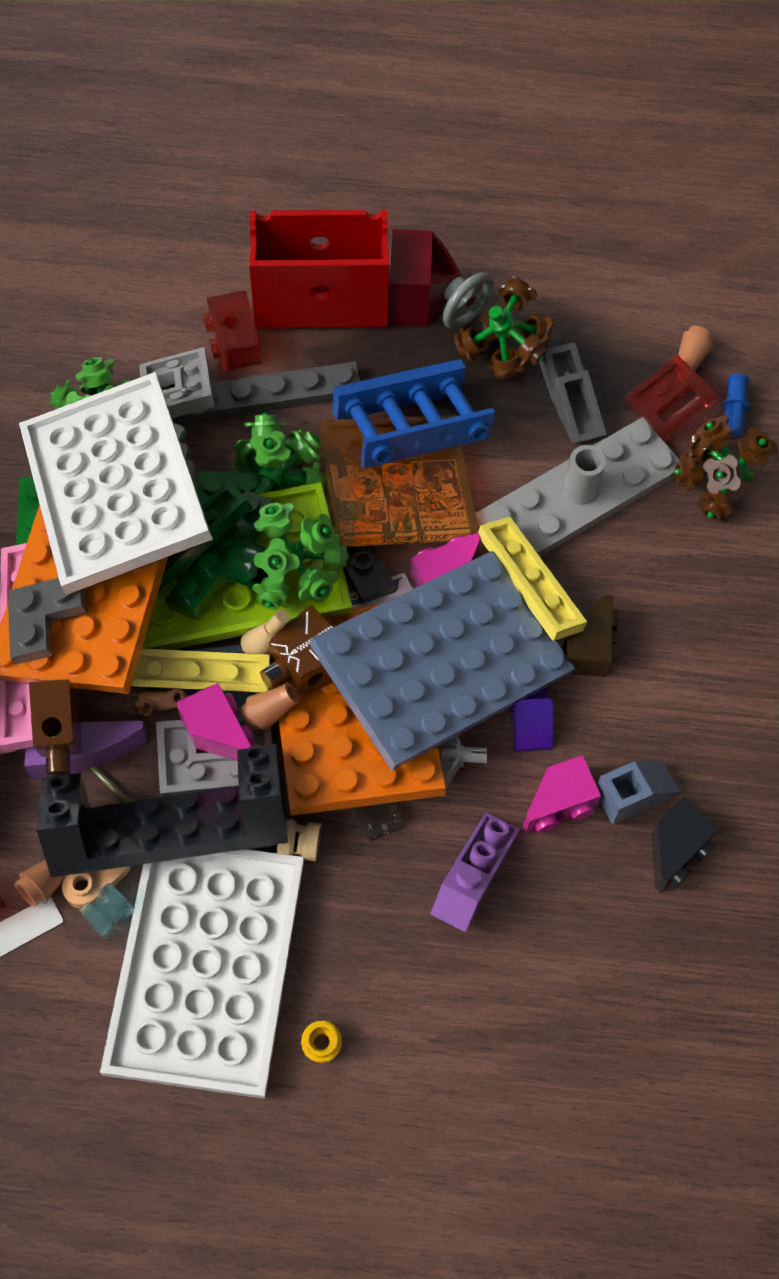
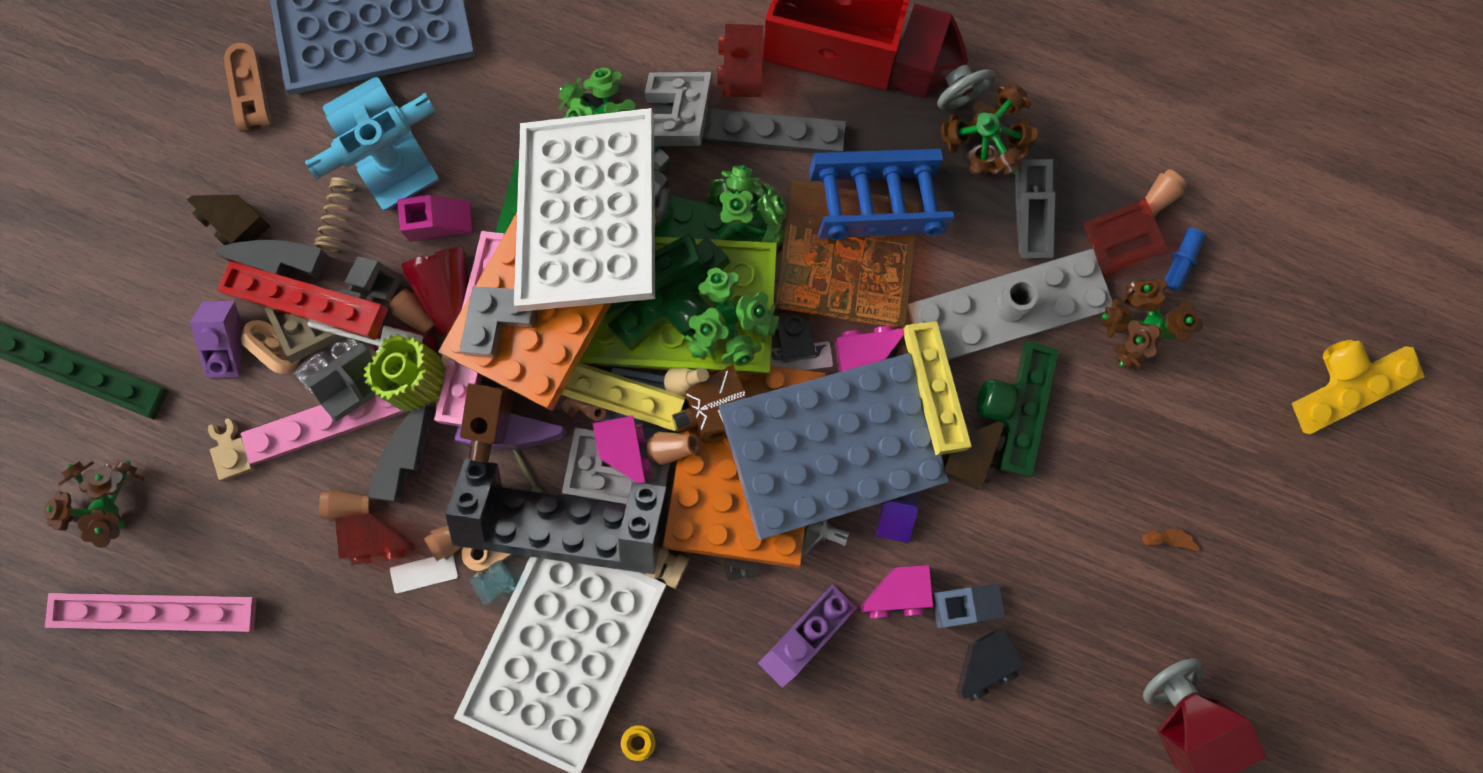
camera: 20 degrees right, 15 degrees up
(625, 578) = (1021, 407): none -> dark green plate

